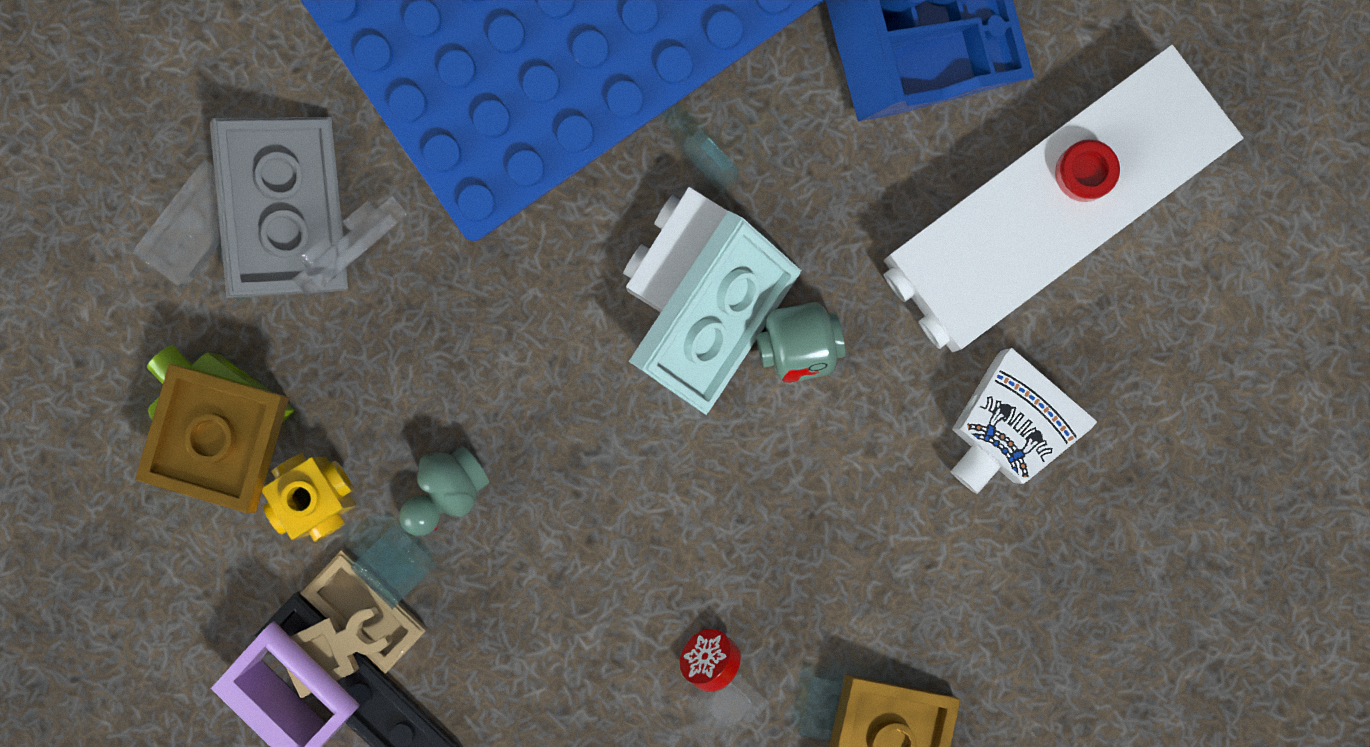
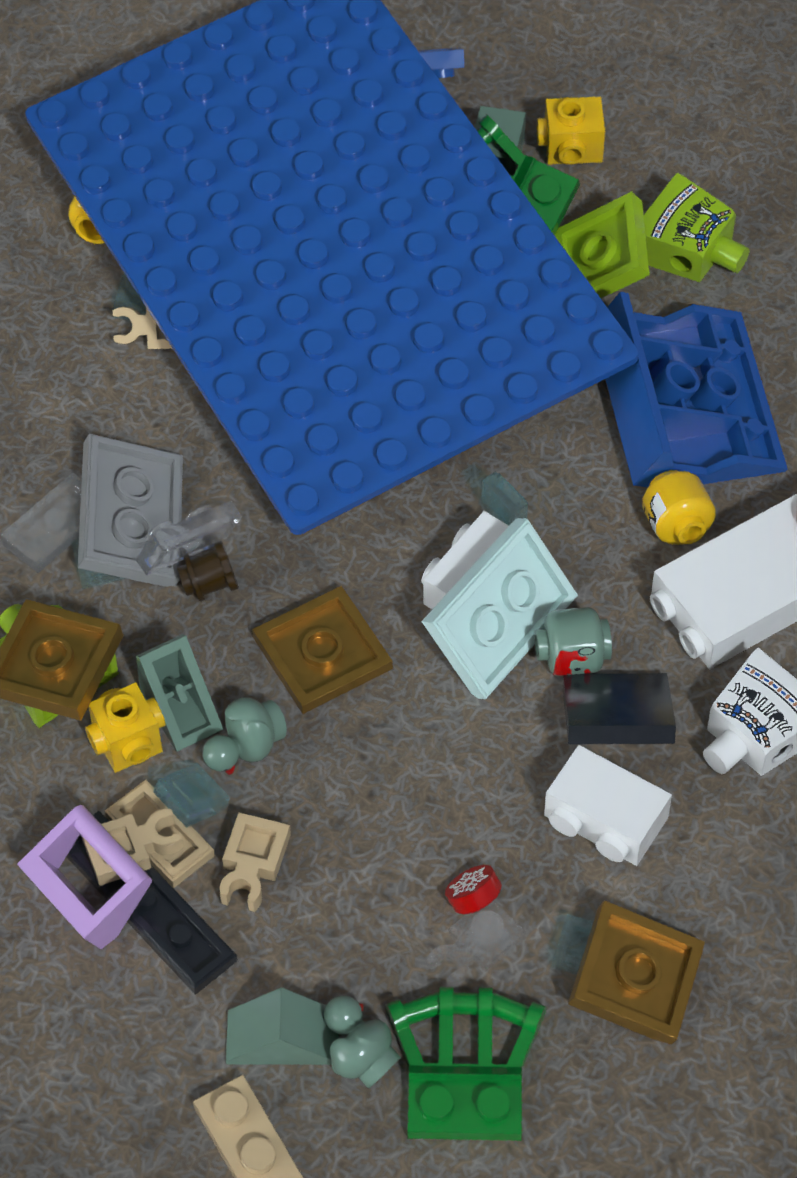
camera: 10 degrees right, 30 degrees down
(363, 449) = (177, 685): none -> sand green slope
(379, 282) = (207, 572): none -> dark brown brick
(470, 632) = (253, 853): none -> tan plate
(518, 365) = (322, 649): none -> pearl gold tile
(848, 550) = (606, 806): none -> white brick
(856, 430) = (618, 709): none -> black tile
(912, 152) = (678, 505): none -> yellow head

